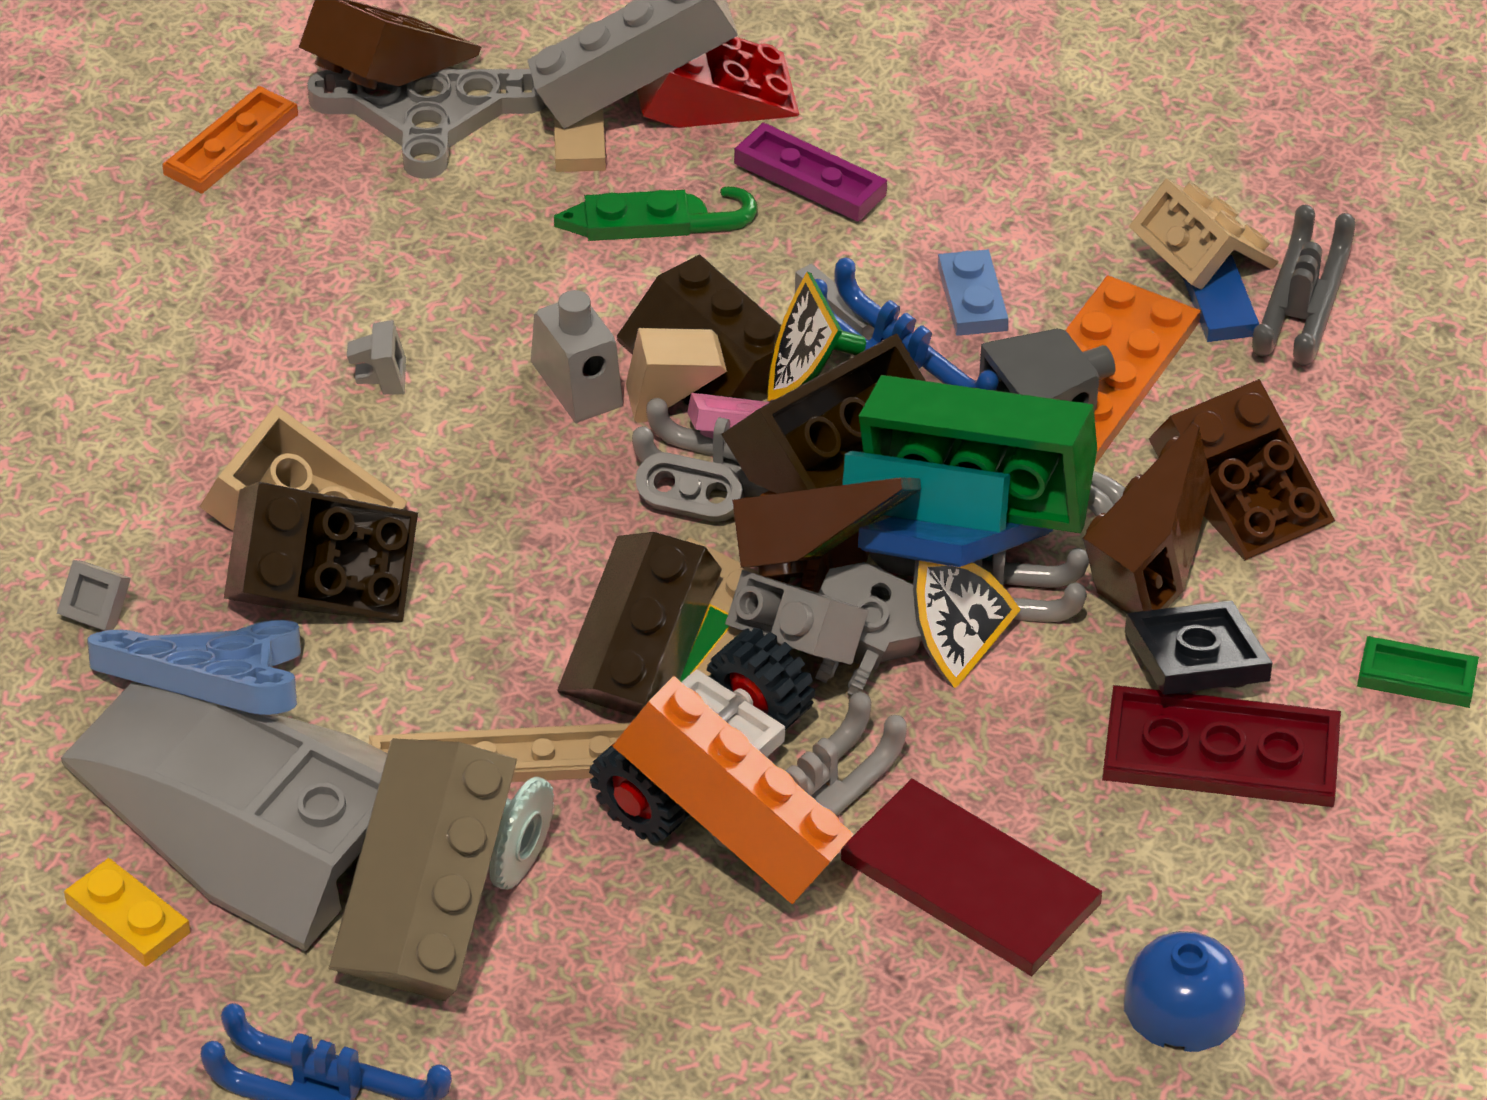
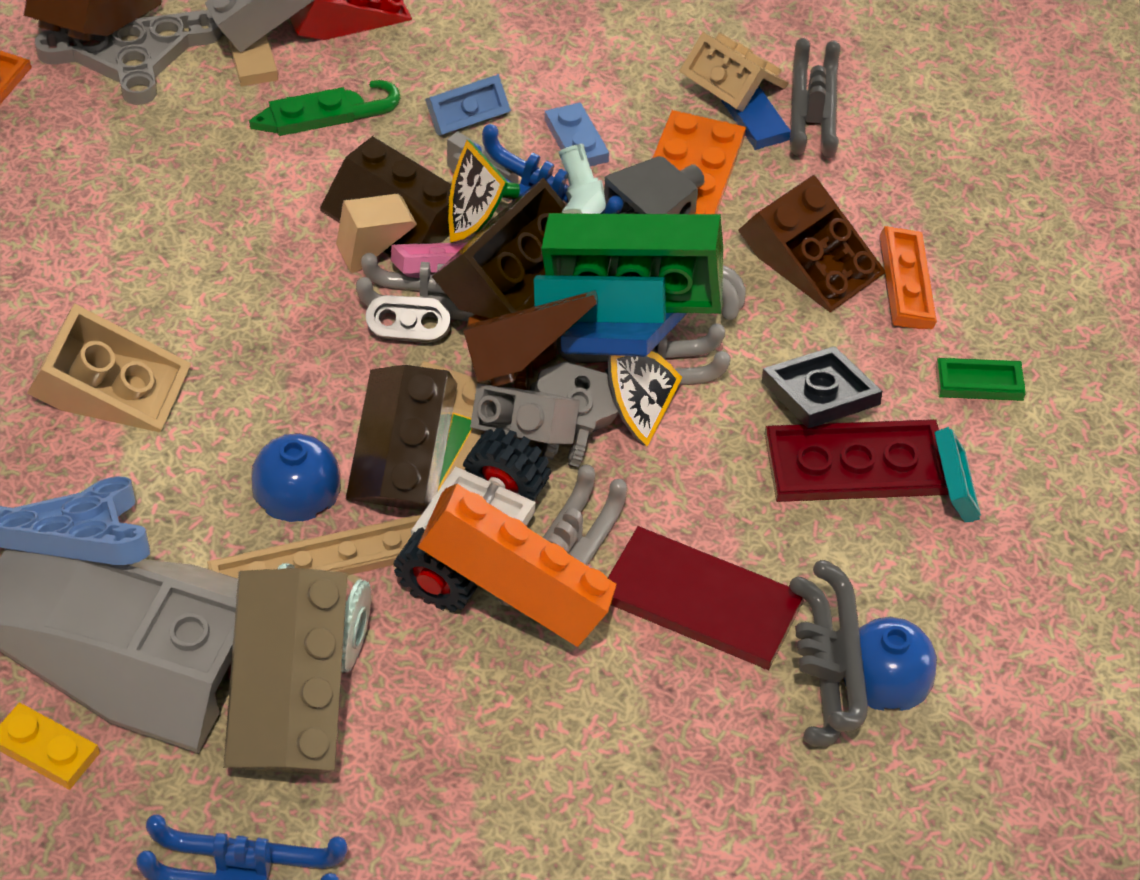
camera: 15 degrees left, 5 degrees up
(320, 553) = (134, 418): dark brown slope -> none
(382, 358) = (142, 252): light grey tile -> none
(500, 654) = (295, 477): none -> blue cylinder
(575, 341) = (297, 229): light grey torso -> none
(810, 171) = (431, 59): magenta plate -> none
(839, 233) = (468, 104): none -> medium blue plate
(950, 358) = (585, 191): none -> light aqua arm
(1108, 962) = (832, 653): none -> dark grey piece
(1150, 534) = (764, 315): reddish brown slope -> none
(1344, 782) = (957, 475): none -> teal tile
(1360, 532) = (907, 278): none -> orange tile

